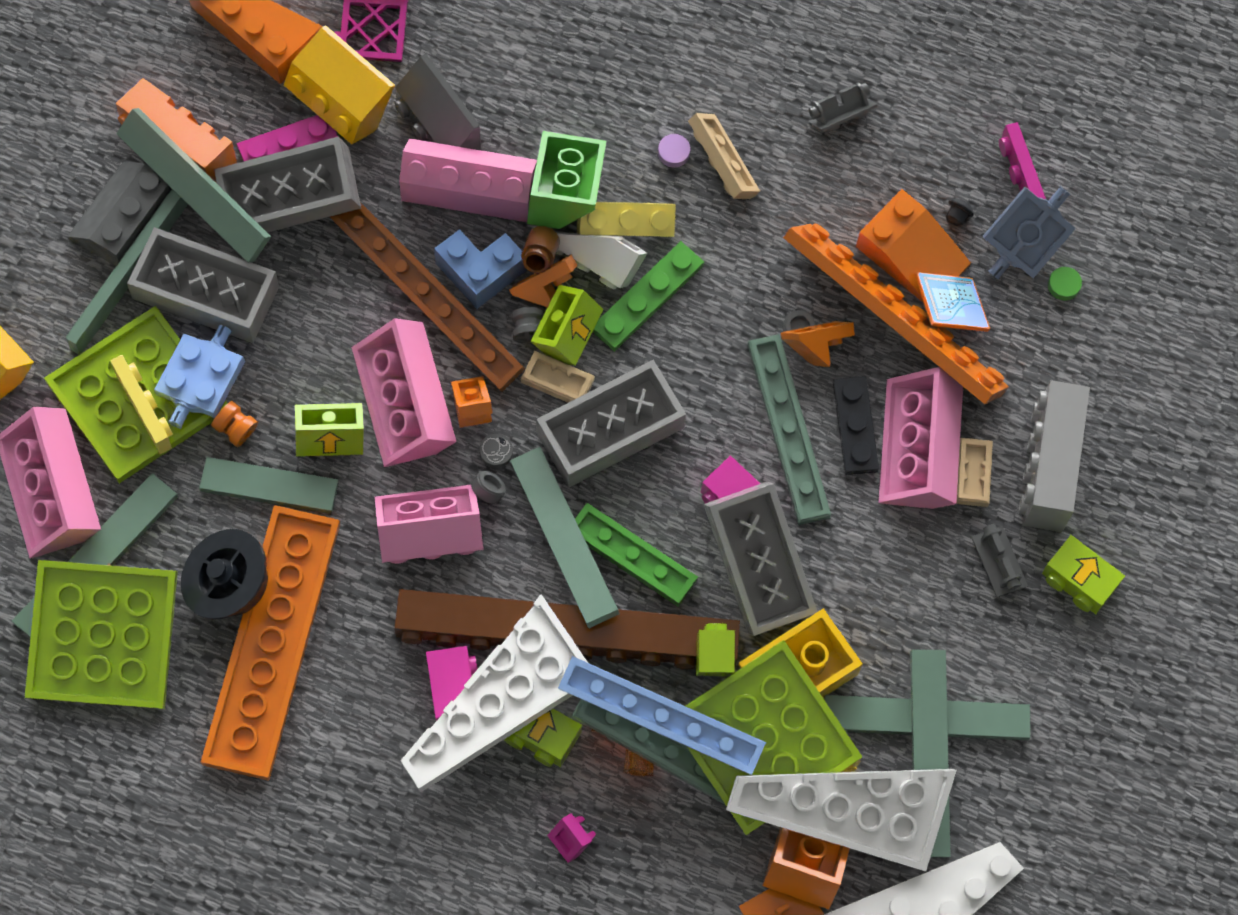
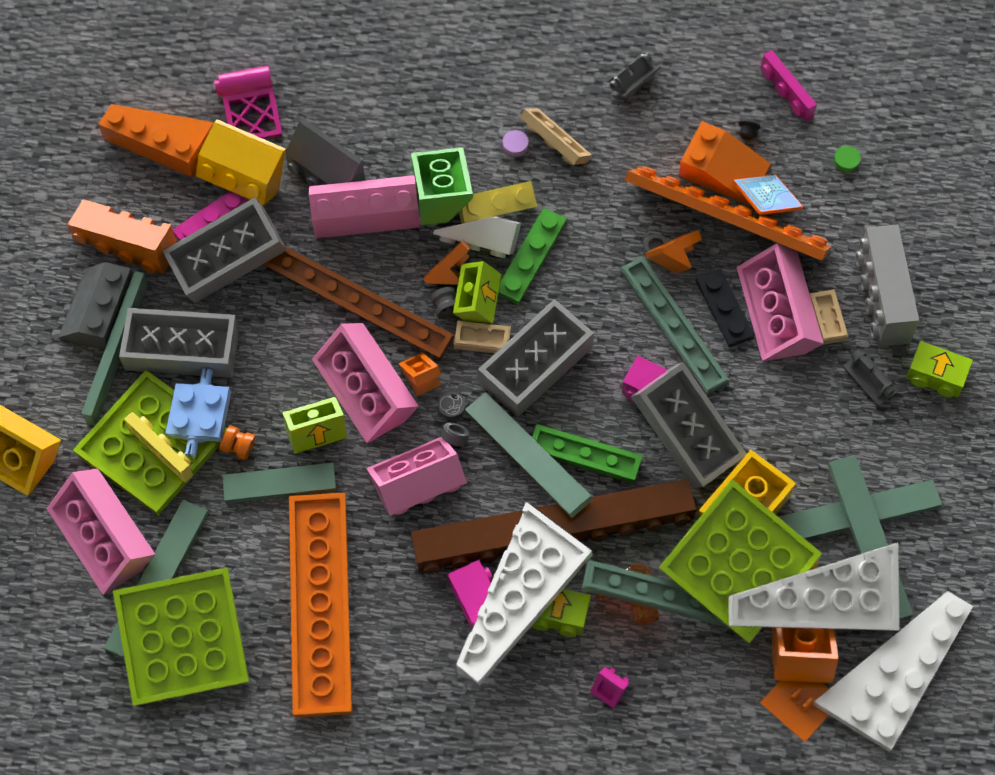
camera: 10 degrees left, 5 degrees down
(193, 185) = (150, 267): sand green tile -> none
(224, 575) = (267, 560): black wheel -> none
(476, 272) = (395, 273): medium blue brick -> none
(540, 249) = (438, 240): reddish brown brick -> none
(661, 715) = (655, 566): light blue plate -> none
(715, 650) = (679, 505): lime brick -> none
(1029, 232) = (808, 127): sand blue plate -> none

